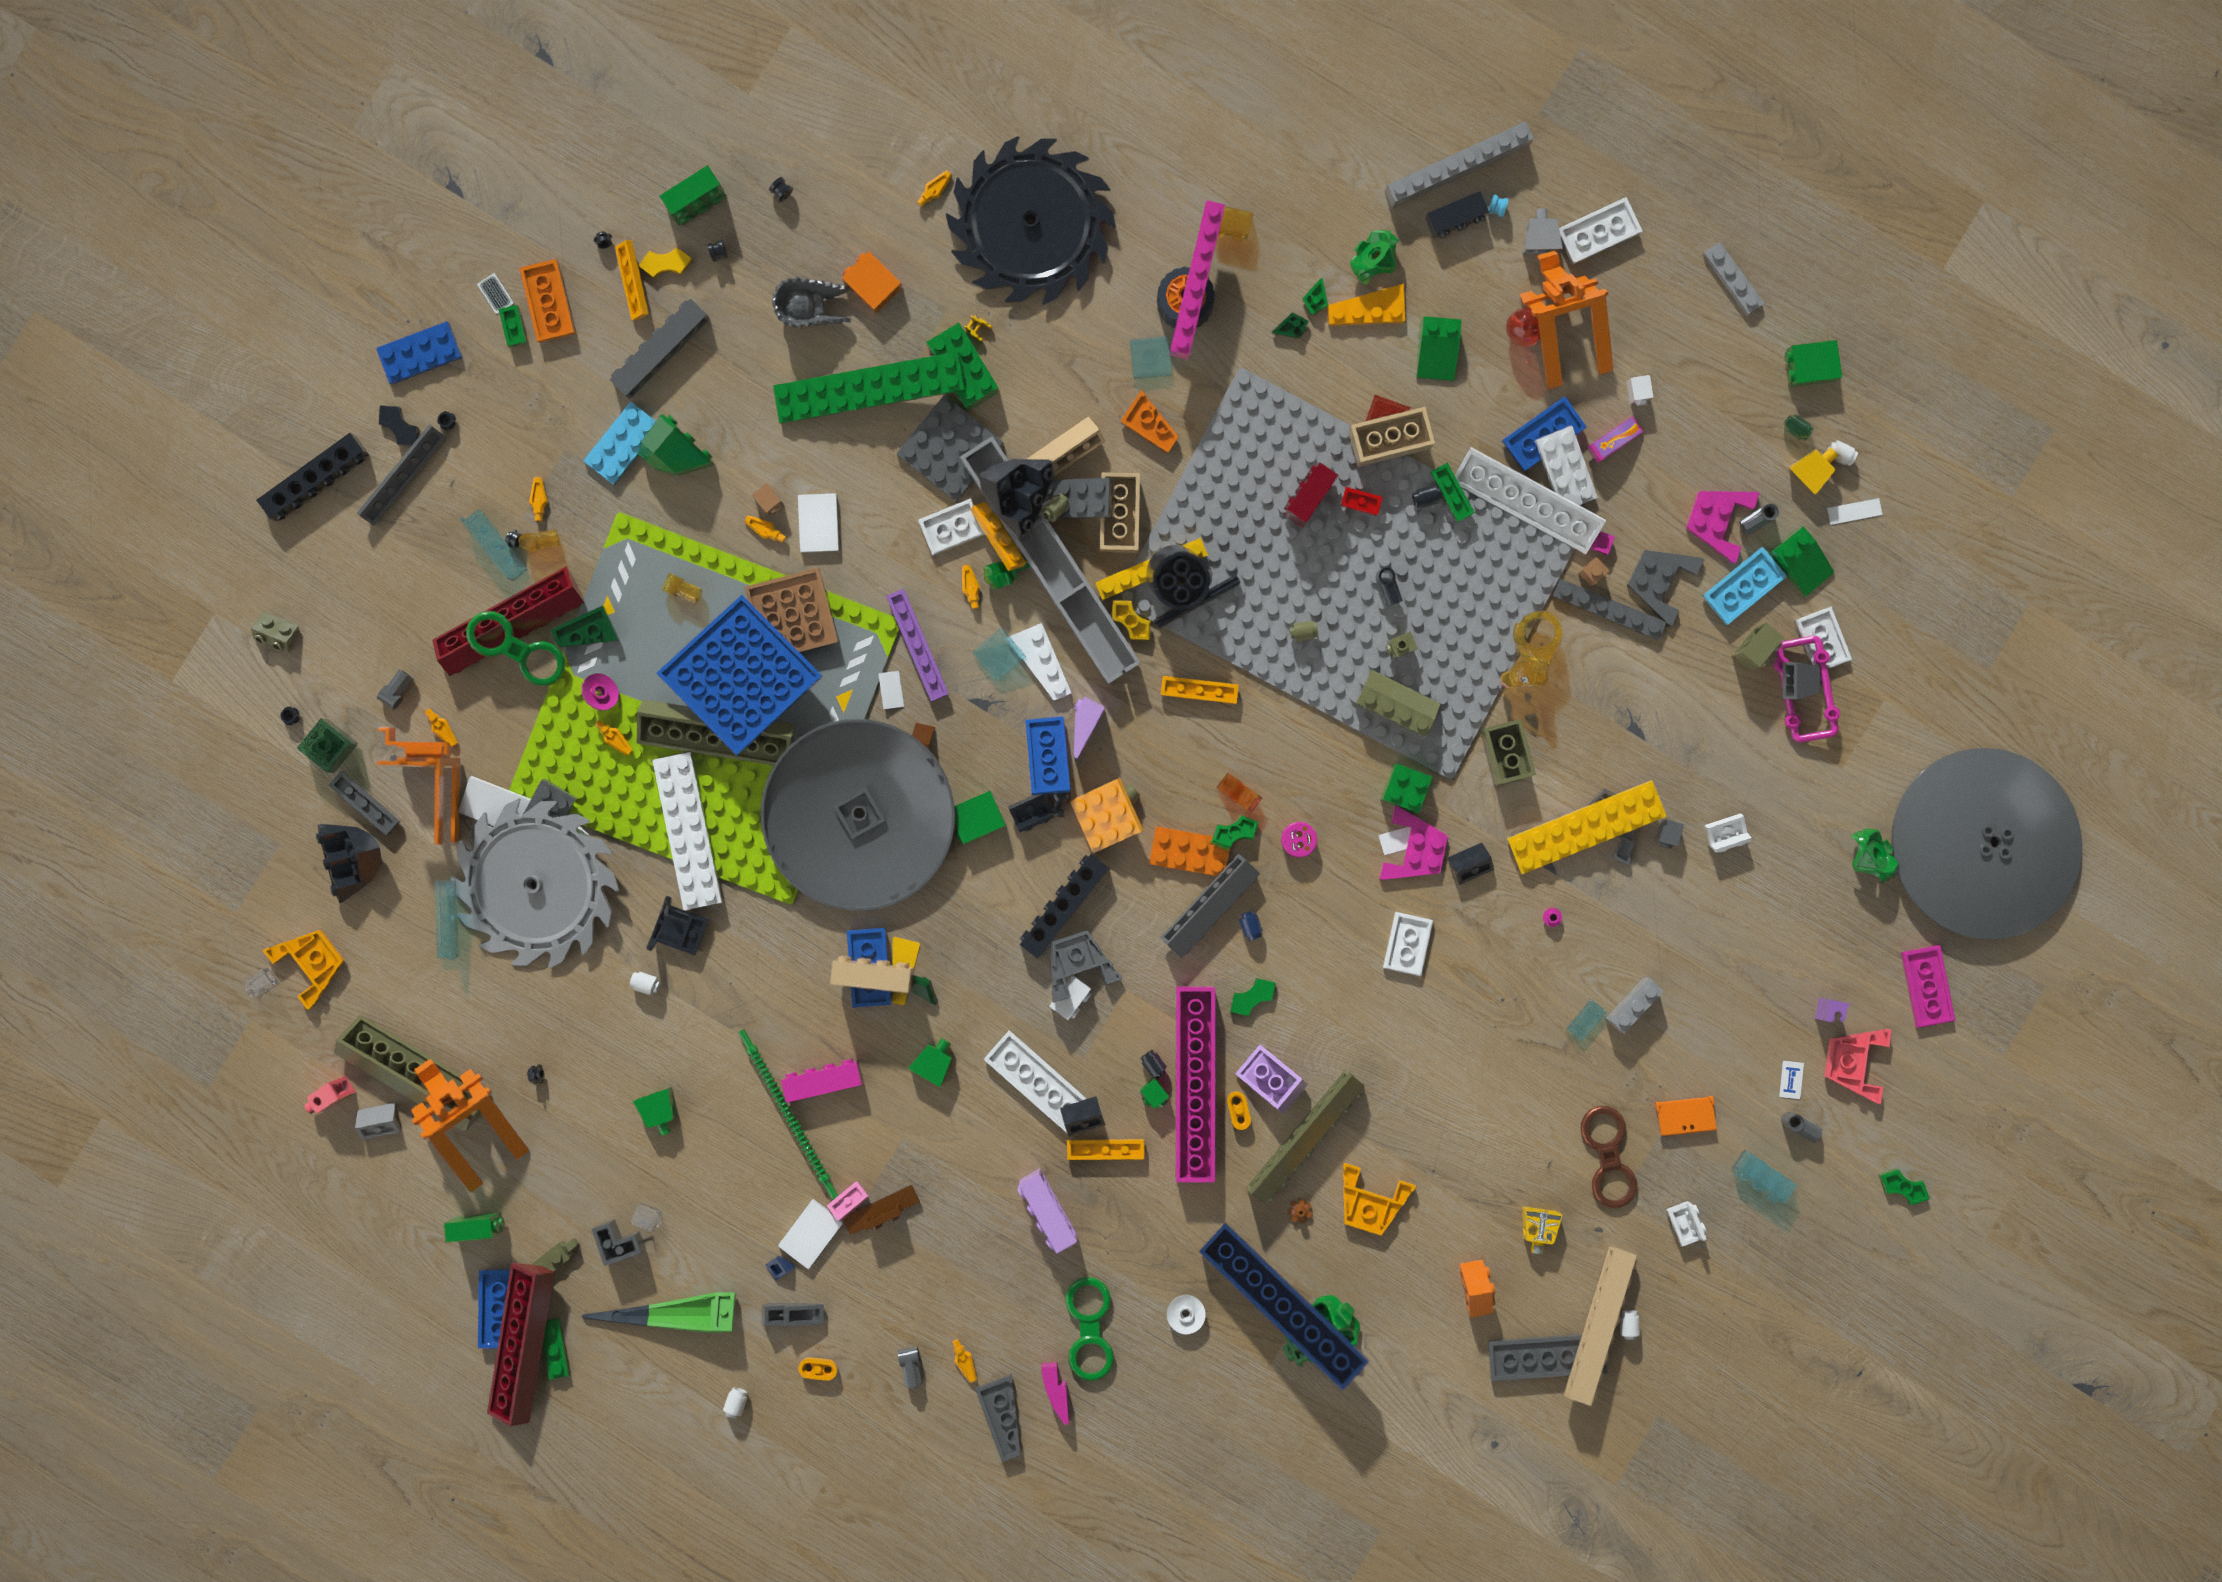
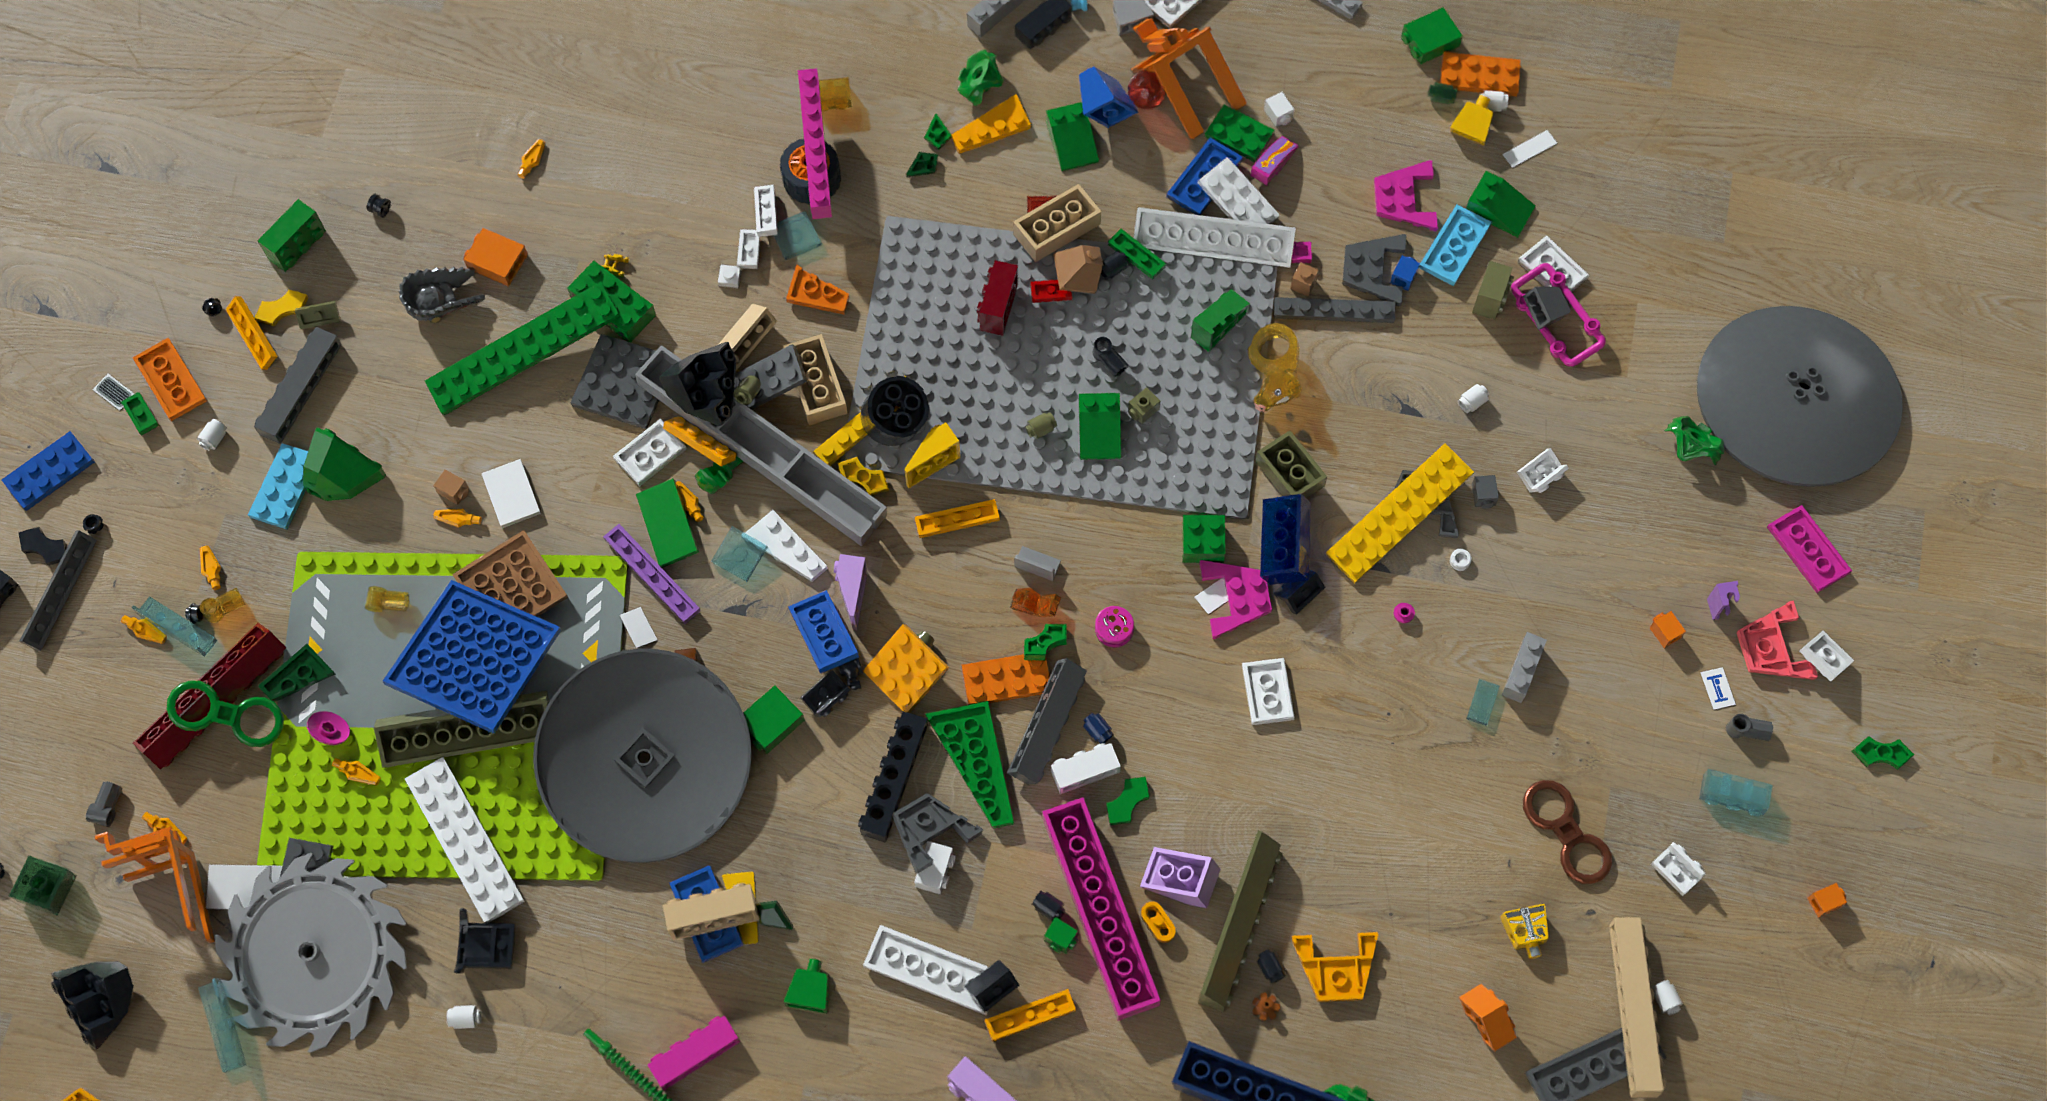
camera: 15 degrees left, 20 degrees down
(364, 803) = (99, 934): dark grey plate -> none
(466, 538) = (144, 629): none -> light orange piece
(571, 371) = (211, 435): none -> white brick
(695, 283) = (317, 315): none -> olive plate
(717, 250) = (331, 278): black wheel -> none
(945, 602) = (667, 523): none -> green tile
(1036, 253) = (642, 185): black piece -> none
(1077, 377) = (729, 276): none -> white plate
(1103, 356) = (748, 249): none -> white plate
(1131, 324) = (765, 210): none -> white plate
(1139, 906) = (973, 748): none -> green wing
(1202, 625) = (935, 452): none -> yellow slope
(1213, 593) = (912, 446): black axle -> none
(1227, 956) = (1085, 768): none -> white brick
(1254, 756) = (1037, 563): none -> light grey panel
(1317, 1181) = (1271, 966): none -> black brick
(1355, 651) = (1099, 426): none -> green slope
(1393, 491) = (1079, 268): none -> medium nougat slope
(1397, 704) = (1162, 463): olive slope -> none
(1476, 817) = (1285, 539): none -> clear blue brick
(1483, 322) = (1104, 98): none -> blue slope
(1501, 585) = (1218, 319): none -> green wedge
(1594, 399) = (1239, 133): none -> green plate
(1621, 886) = (1460, 559): none -> white tile
(1679, 1116) = (1621, 762): orange door -> none
(1687, 597) = (1405, 272): none -> blue brick
(1697, 741) = (1473, 398): none -> white brick
(1758, 519) = (1441, 182): dark grey piece -> none
(1771, 1015) = (1667, 629): none -> orange brick
(1798, 1294) = (1827, 900): none -> orange brick
(1842, 418) = (1480, 73): none -> orange plate
(1896, 1090) = (1826, 656): none -> white plate

